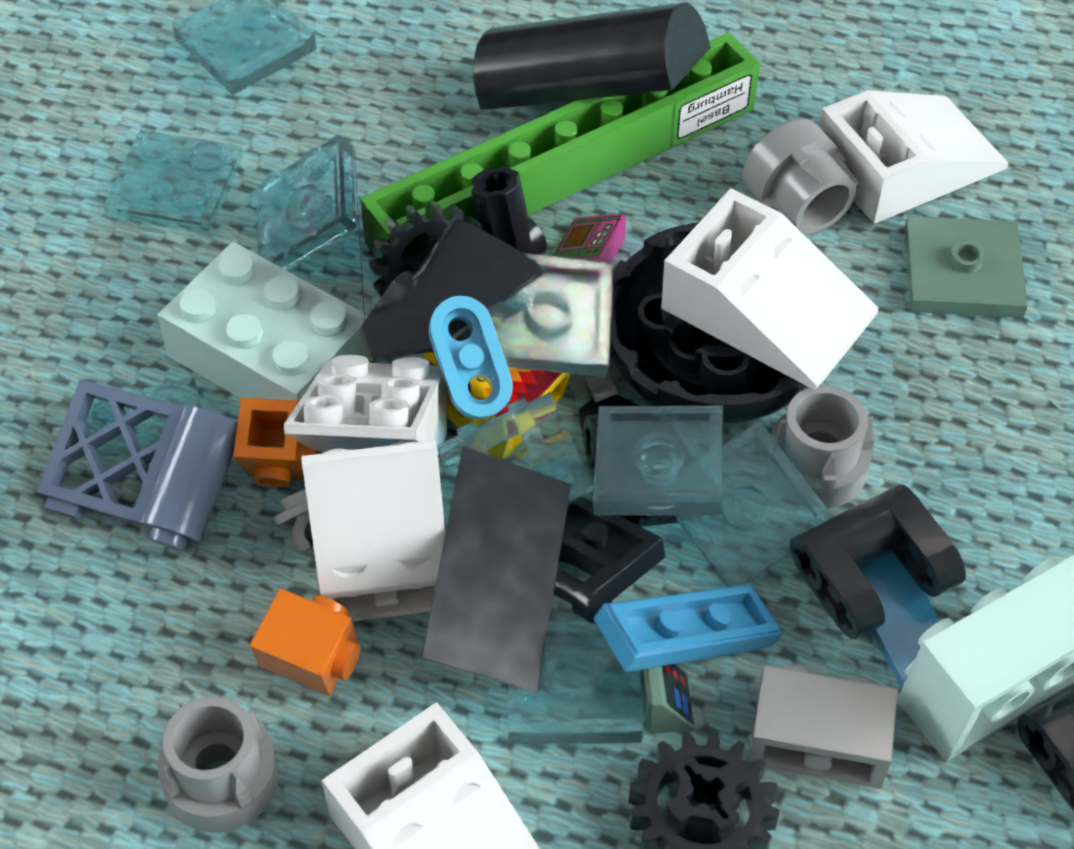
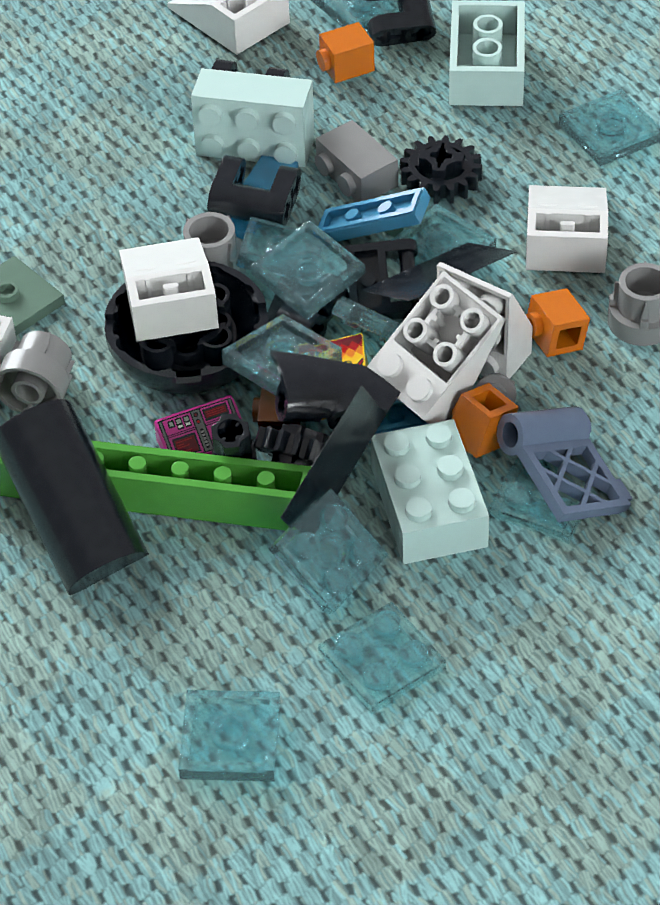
camera: 135 degrees left, 5 degrees down
(470, 359) = (356, 342): medium azure plate -> none

